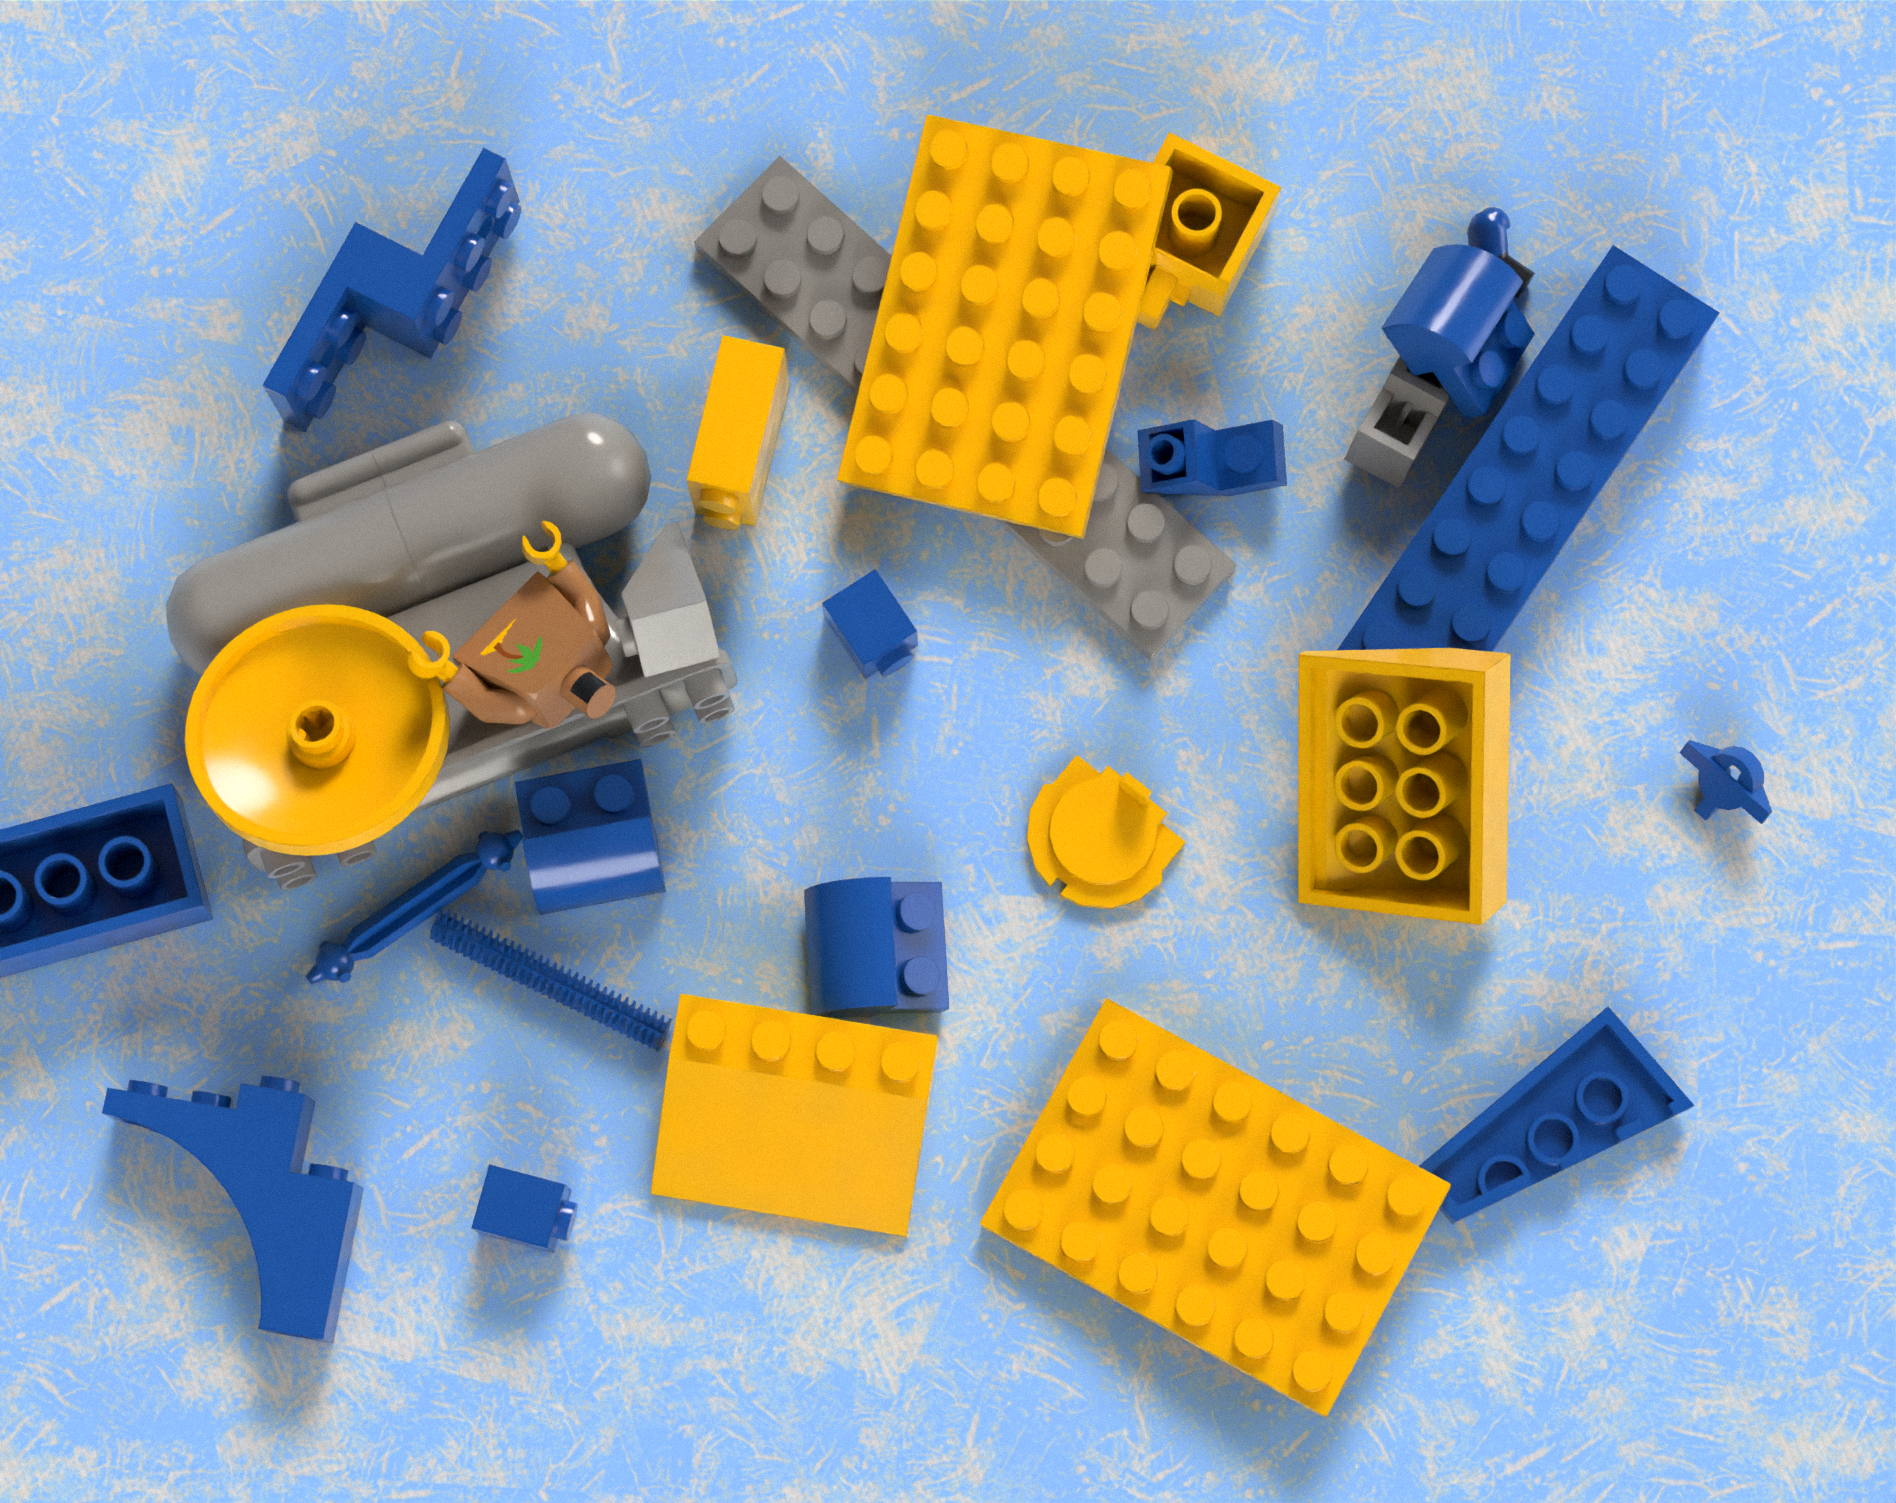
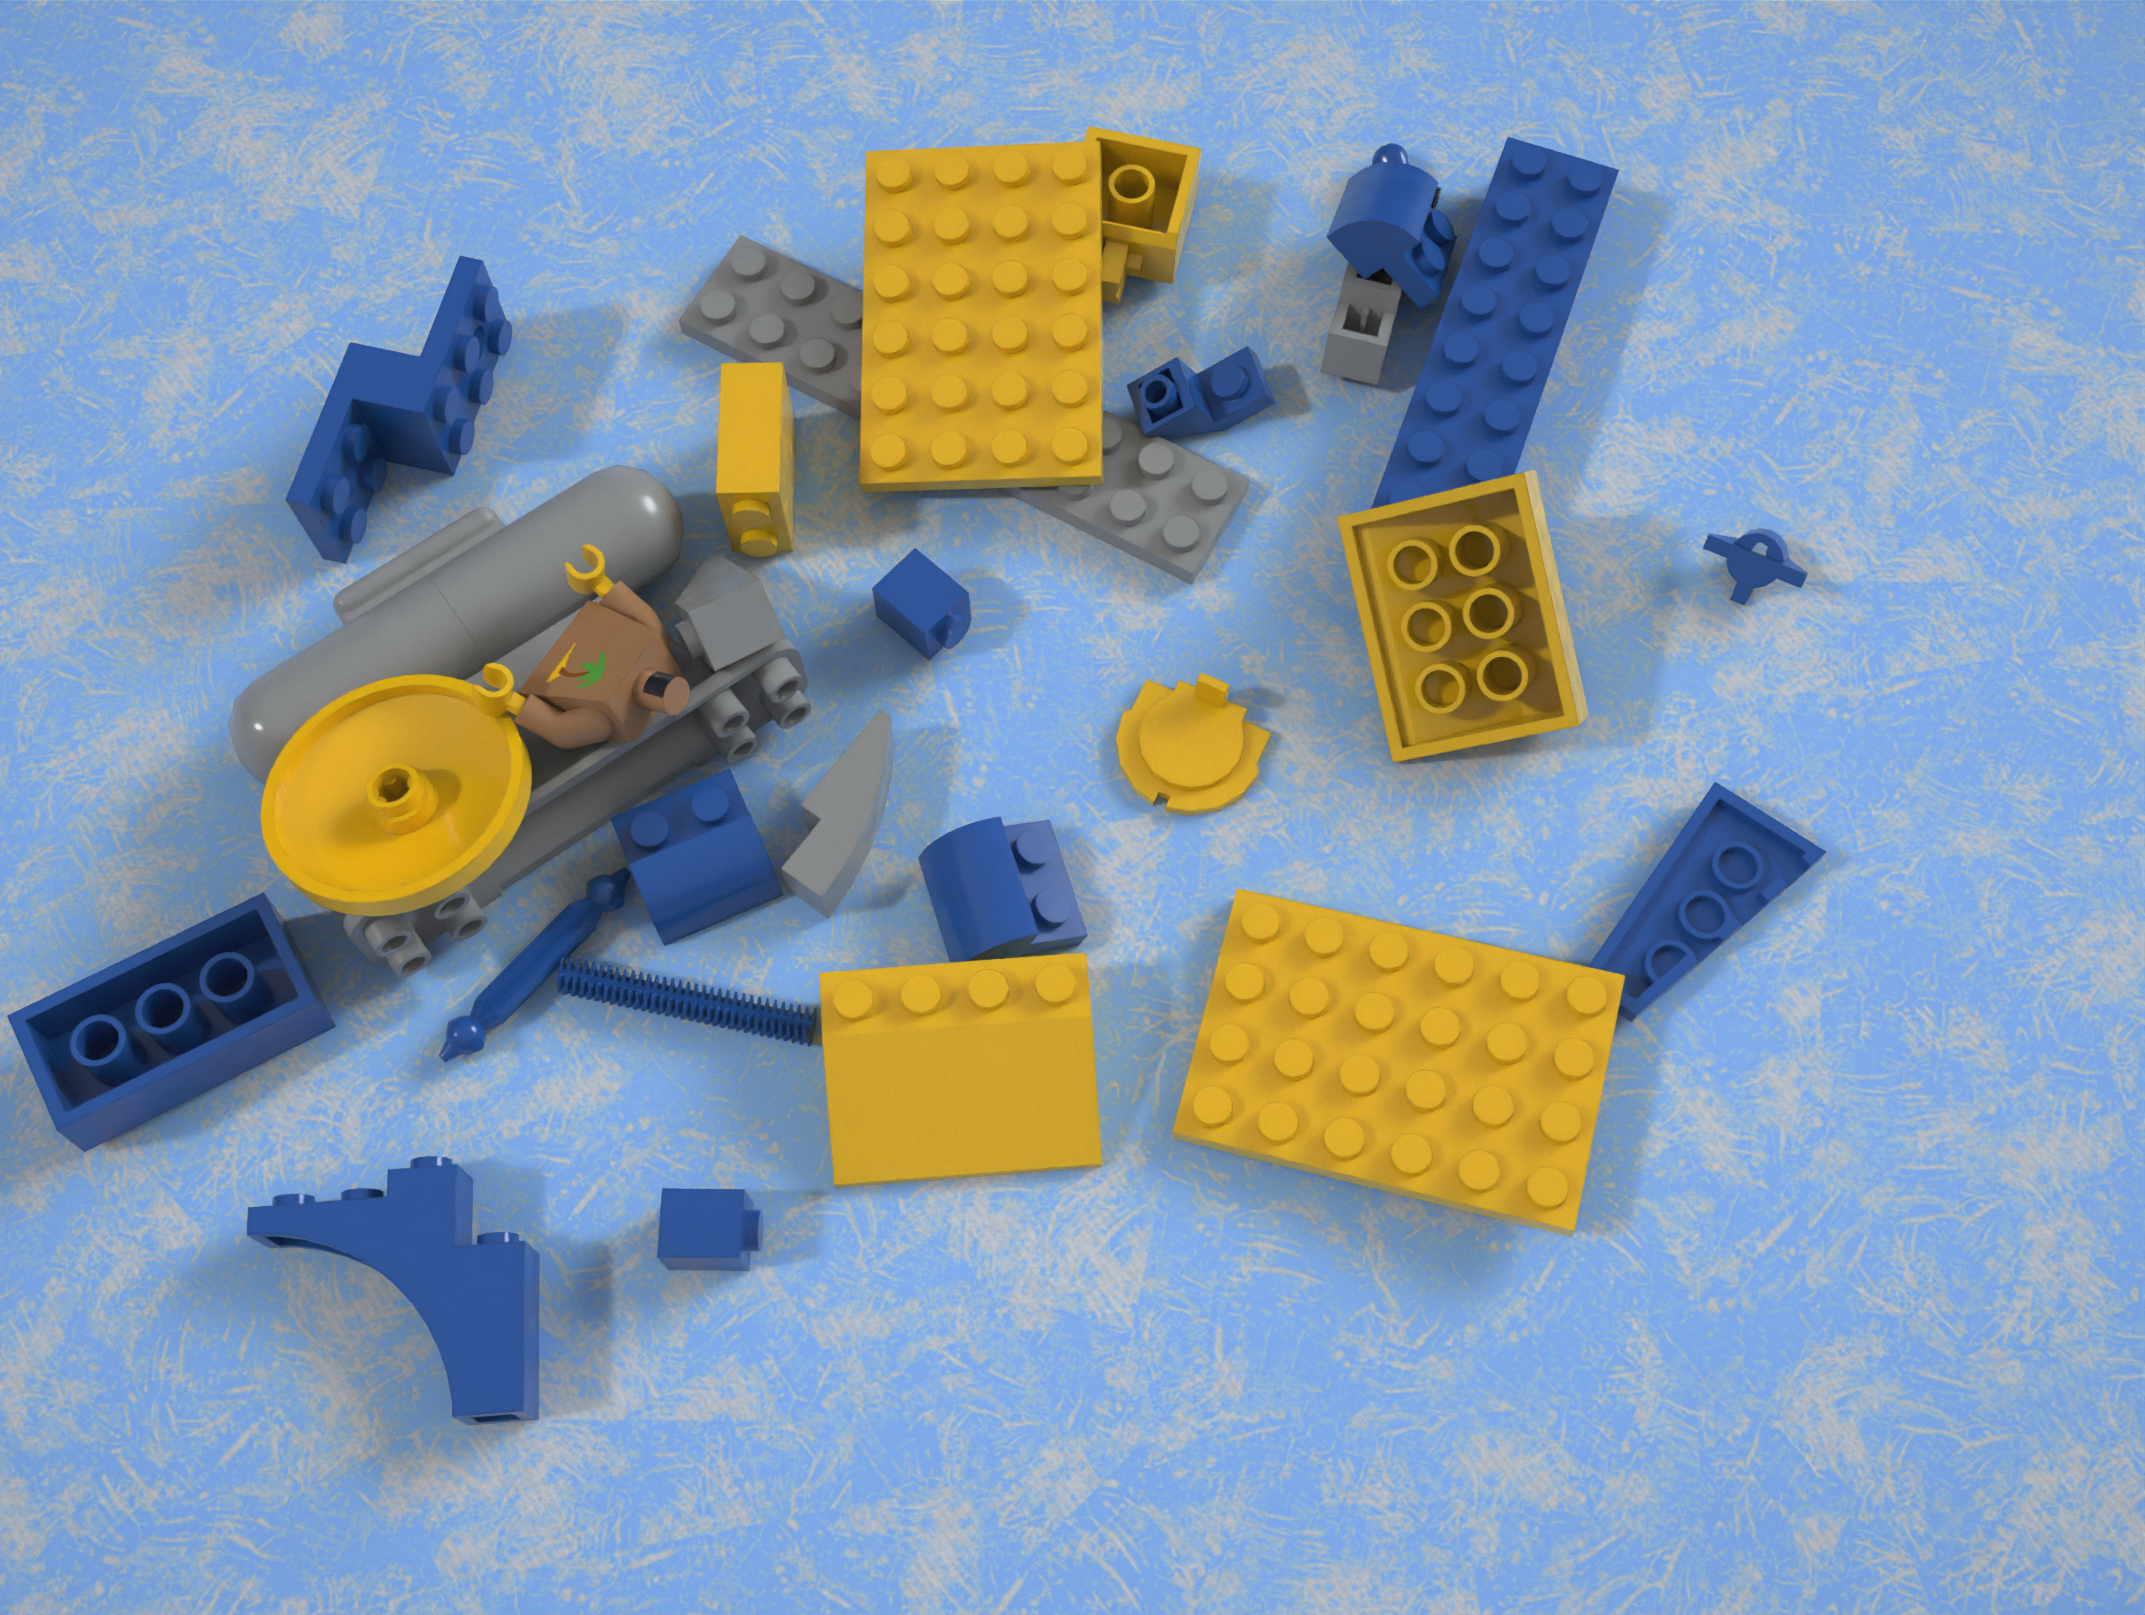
camera: 15 degrees left, 10 degrees down
(743, 832) = (843, 819): none -> light grey slope

